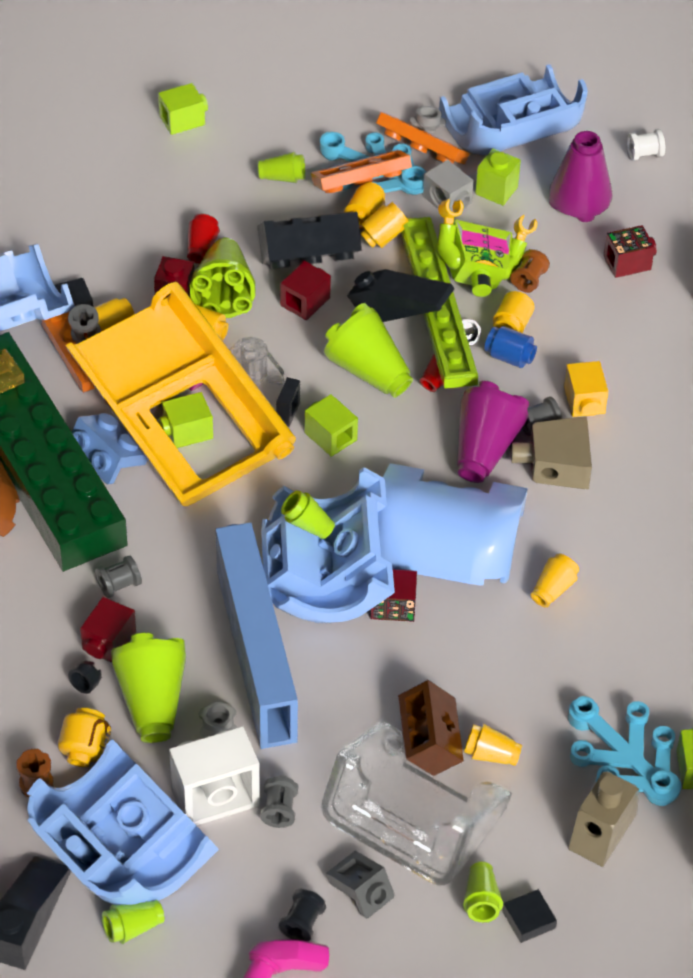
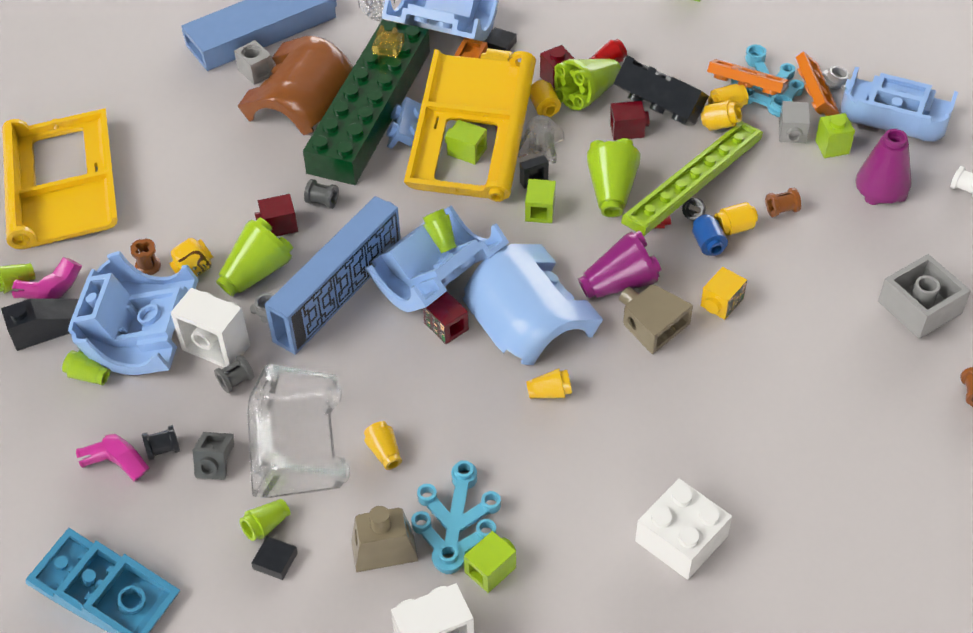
camera: 50 degrees right, 0 degrees up
(80, 326) = (469, 47): dark grey bush -> none
(85, 677) = (236, 228): black hinge -> none
(283, 168) = (708, 48): lime cone -> none
(399, 294) = (665, 152): black slope -> none
(430, 728) = (363, 392): reddish brown brick -> none
(478, 252) = (758, 168): lime torso -> none
(542, 412) = (674, 285): dark grey bush -> none
(629, 251) = (867, 235): dark red brick -> none

